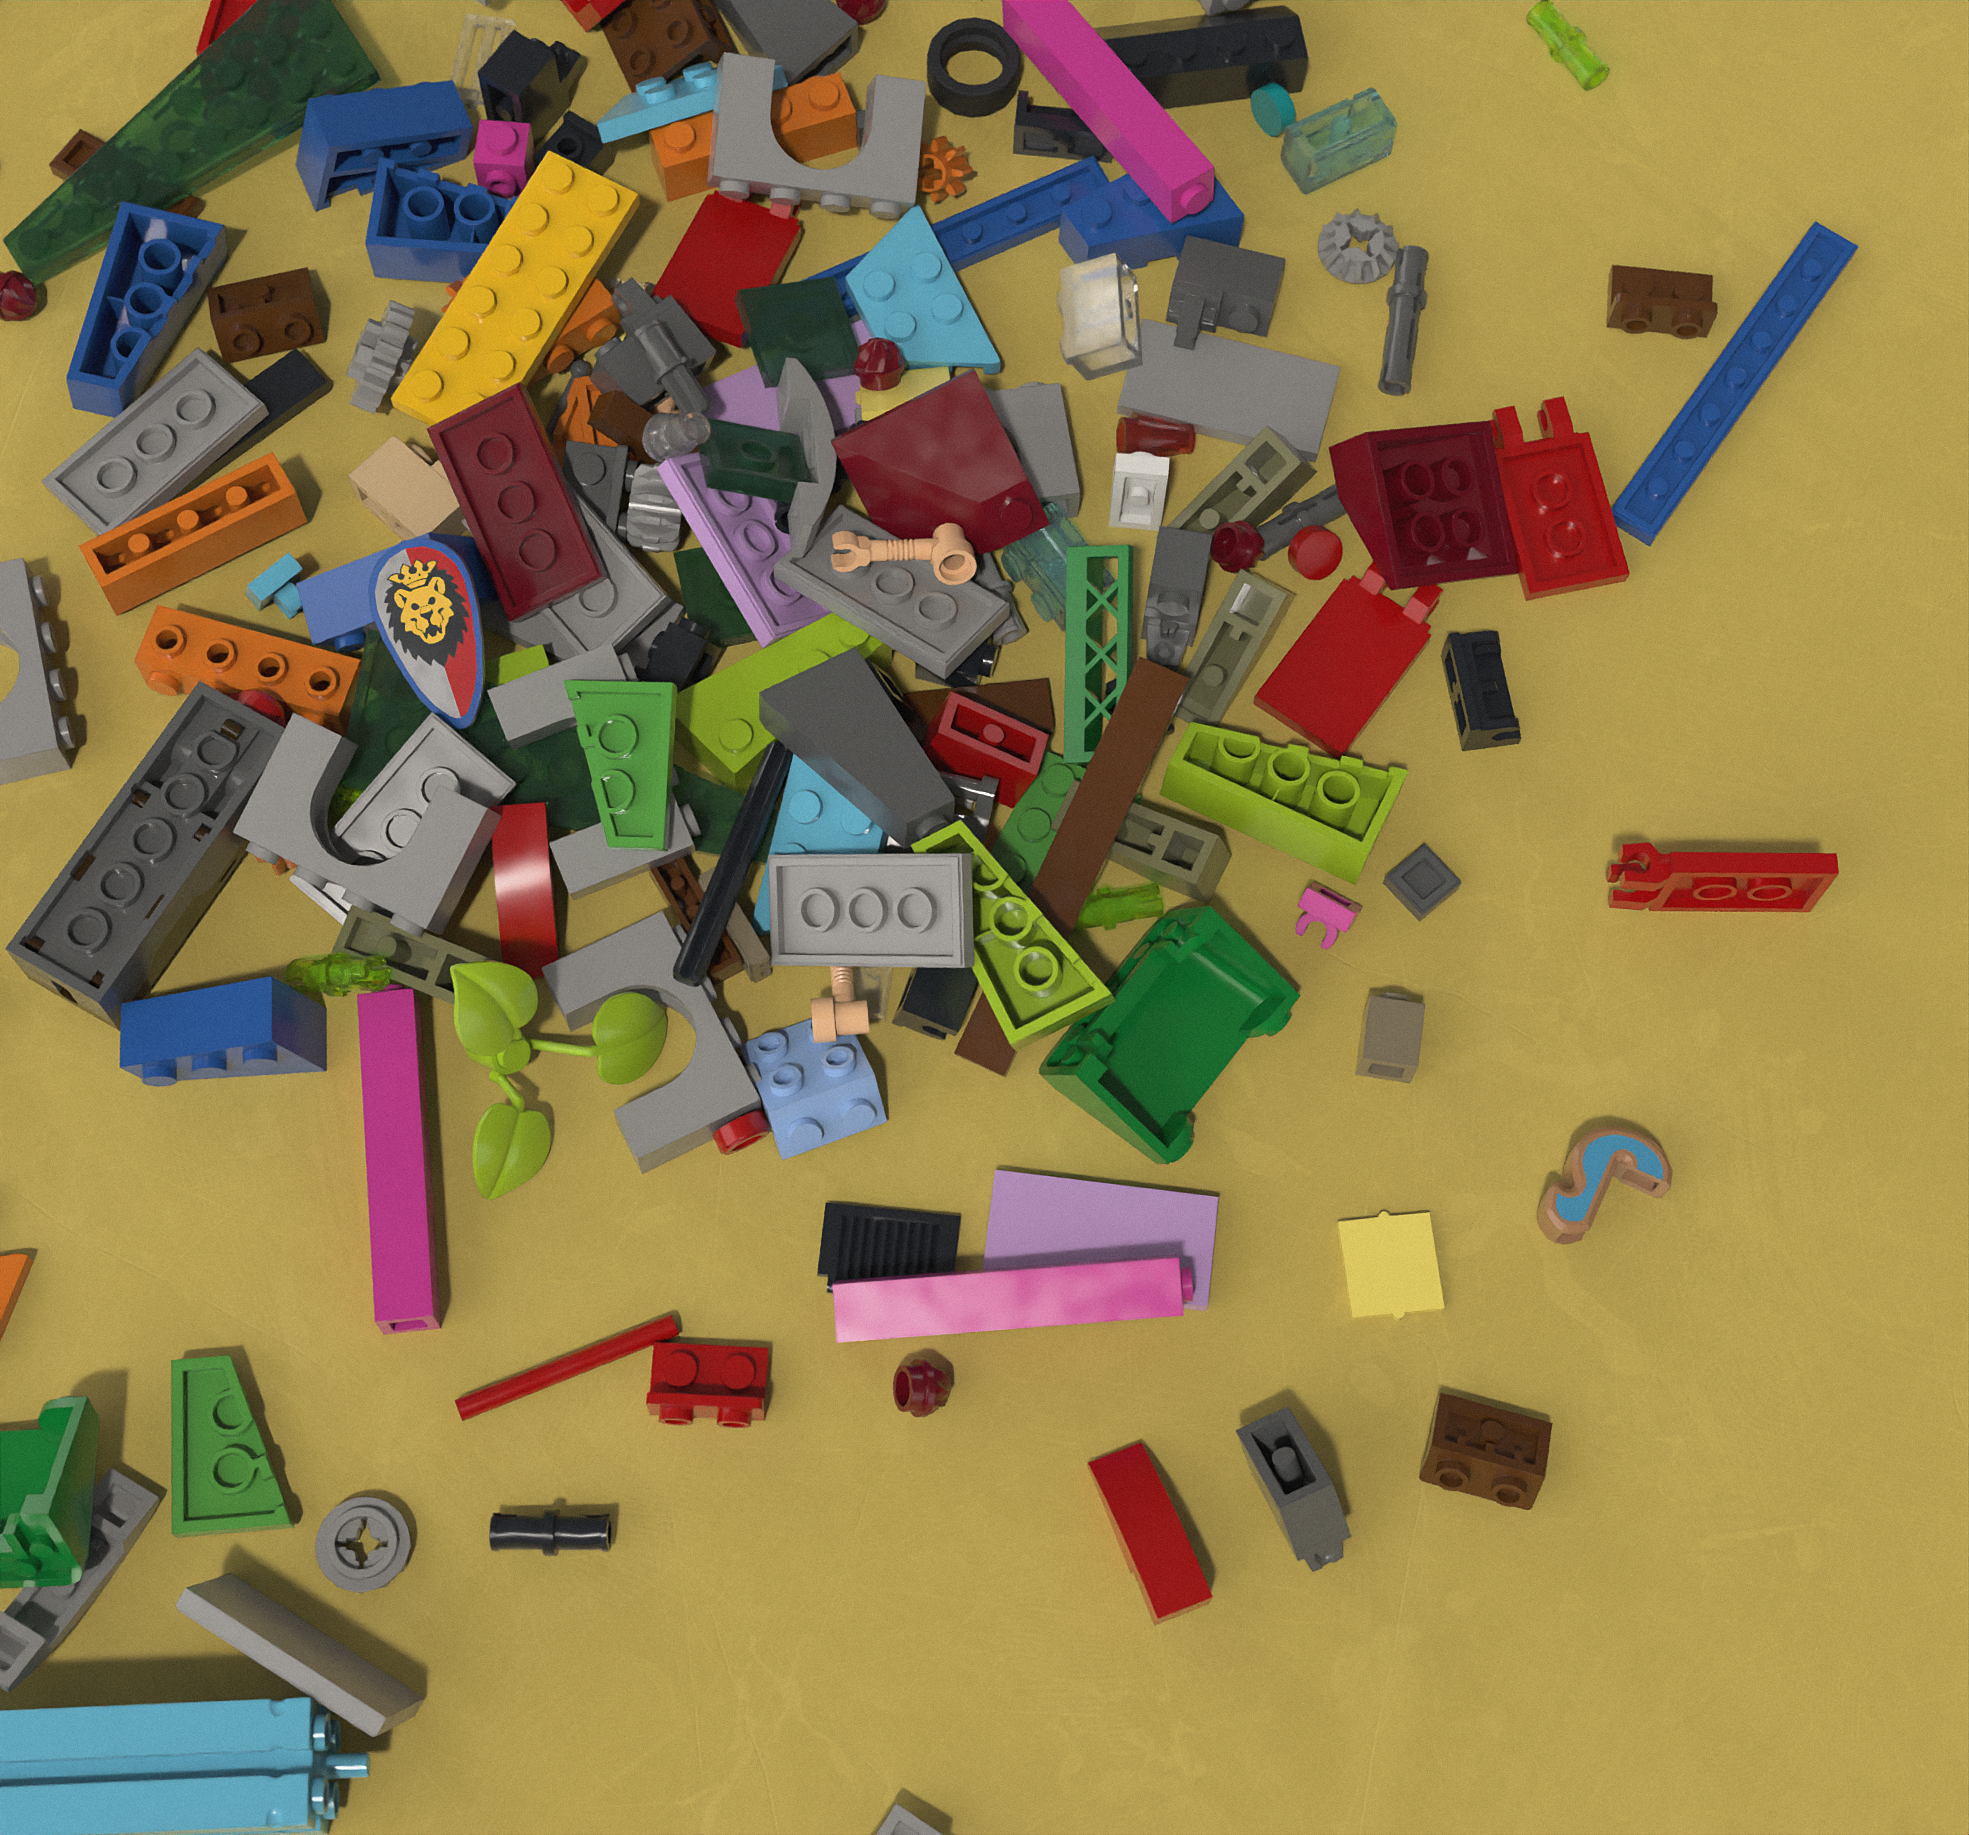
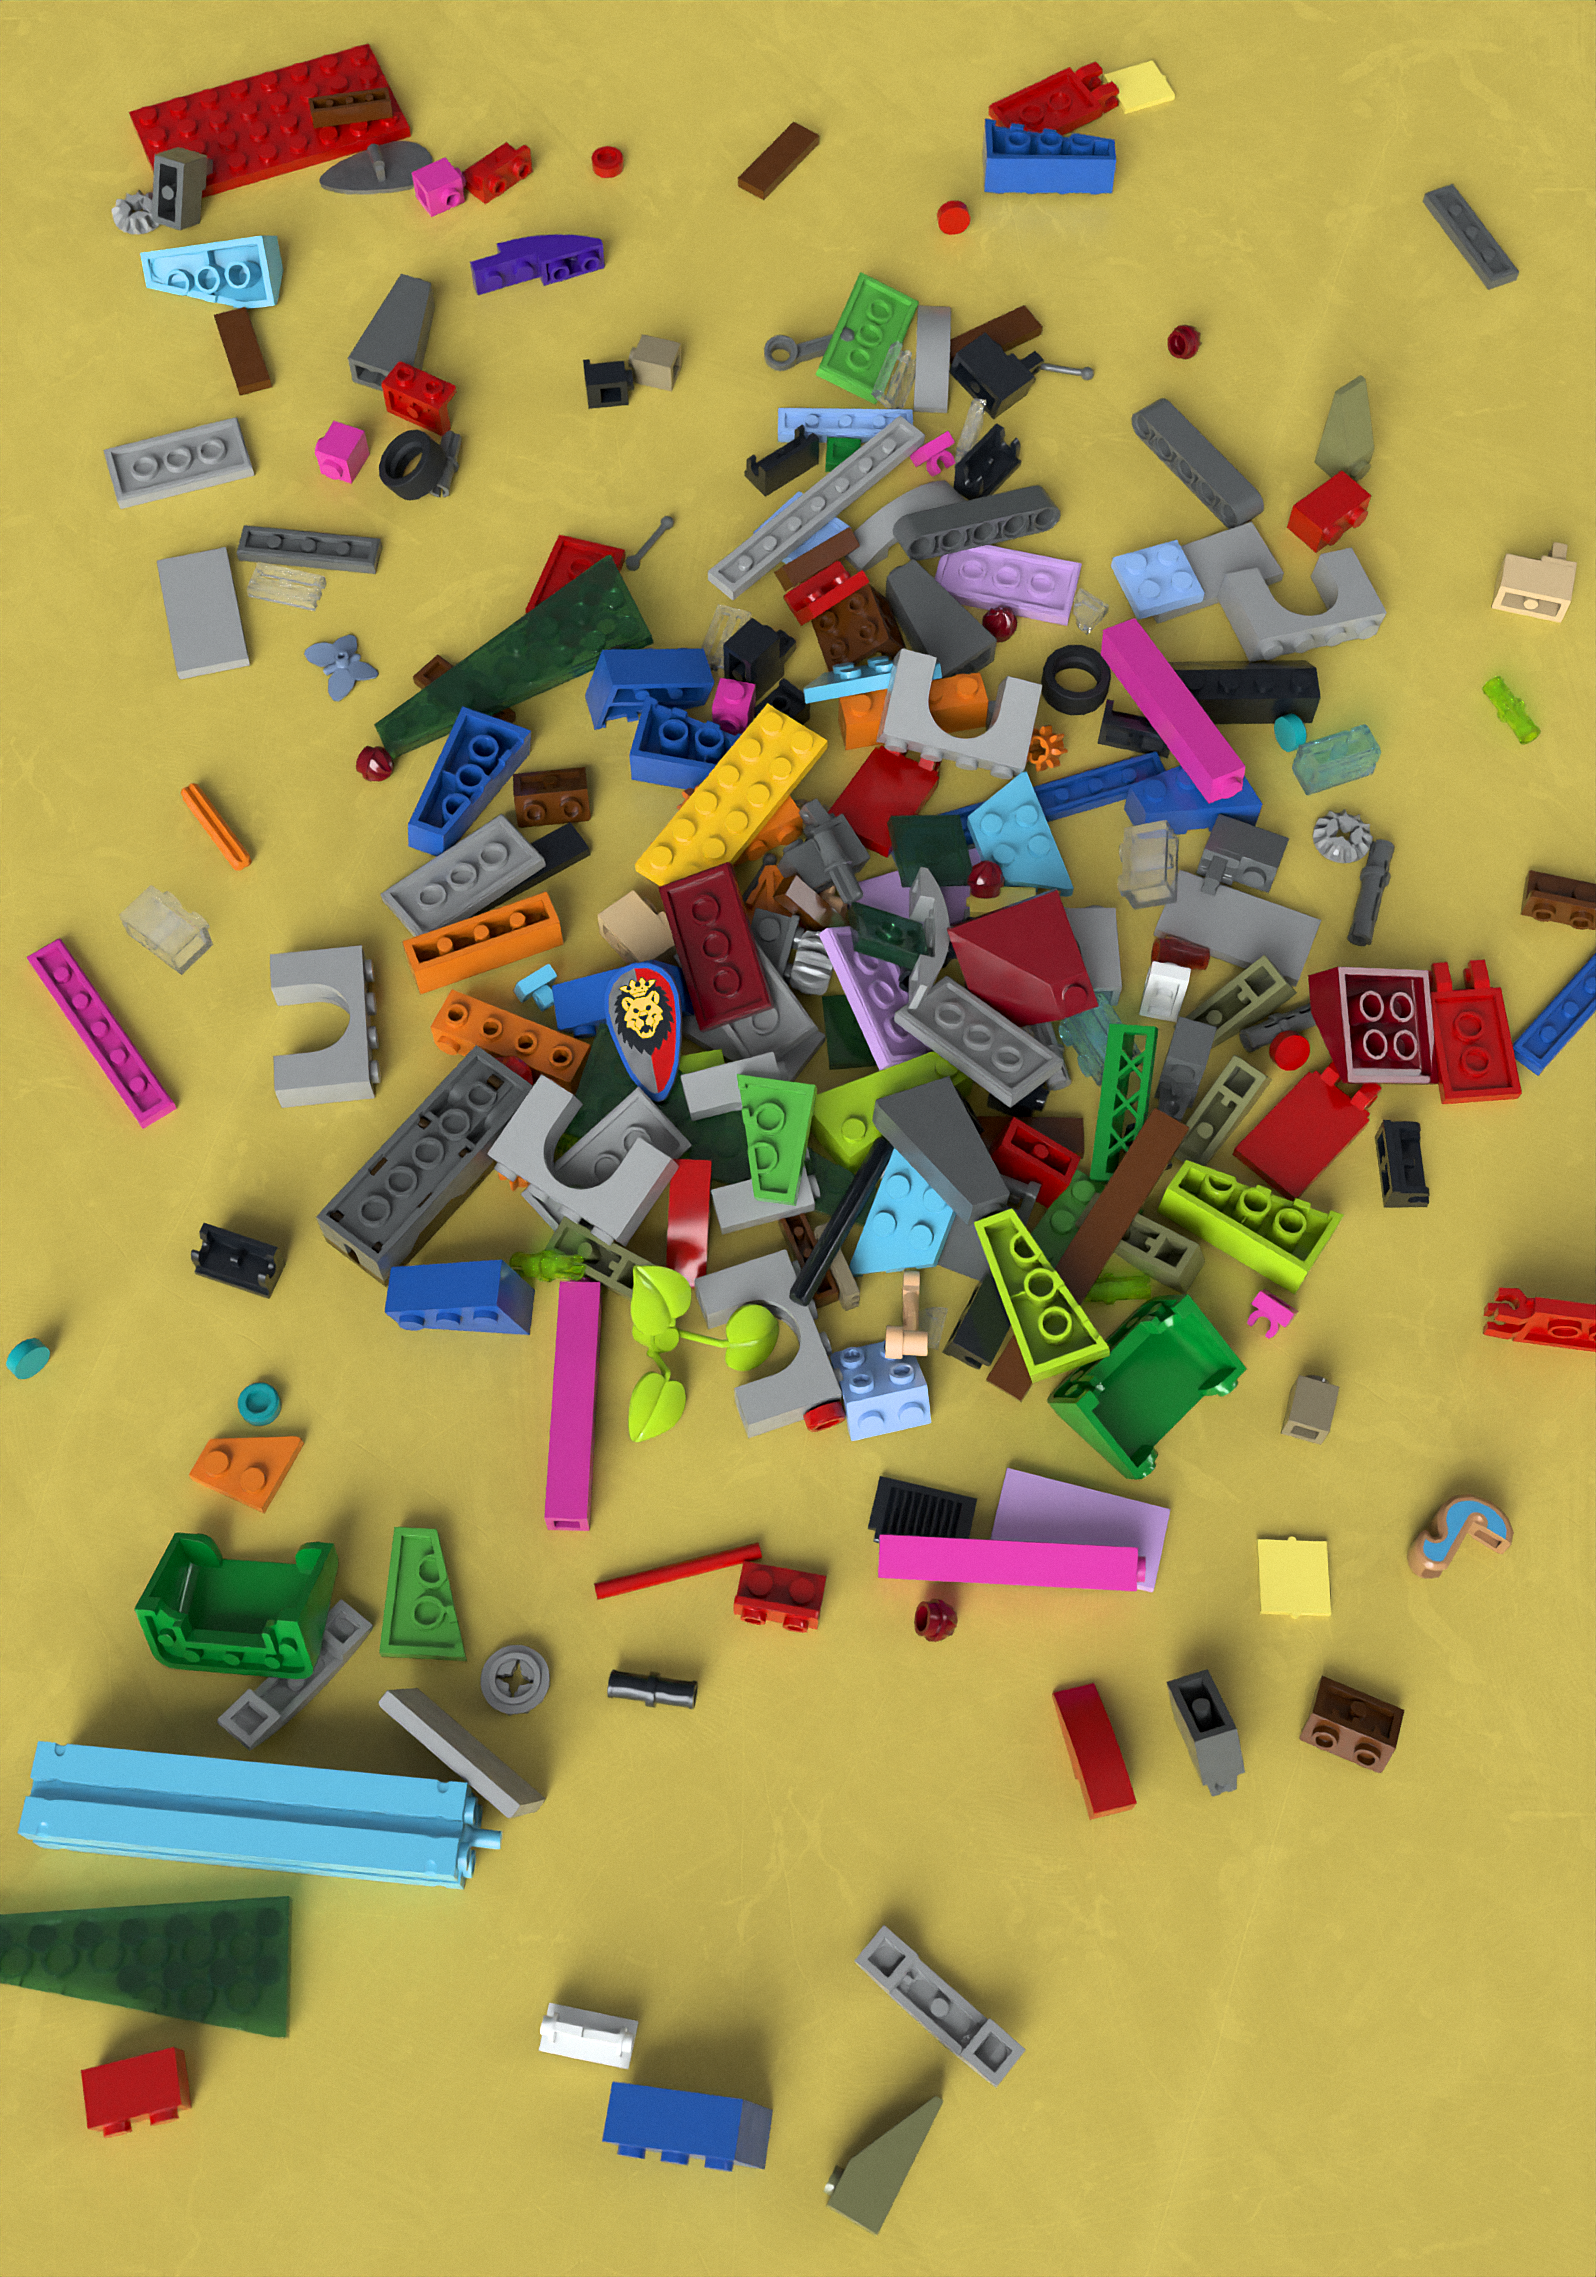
camera: 10 degrees right, 5 degrees down
(382, 356) = (631, 834): light grey gear -> none
(674, 434) = (834, 911): clear cone -> none
(680, 655) = (820, 1068): black brick -> none
(871, 910) = (939, 1266): light grey tile -> none
(947, 551) = (1021, 1016): light nougat brick -> none
(1236, 546) = (1232, 1039): dark red plate -> none
(1422, 882) = (1344, 1299): dark grey tile -> none

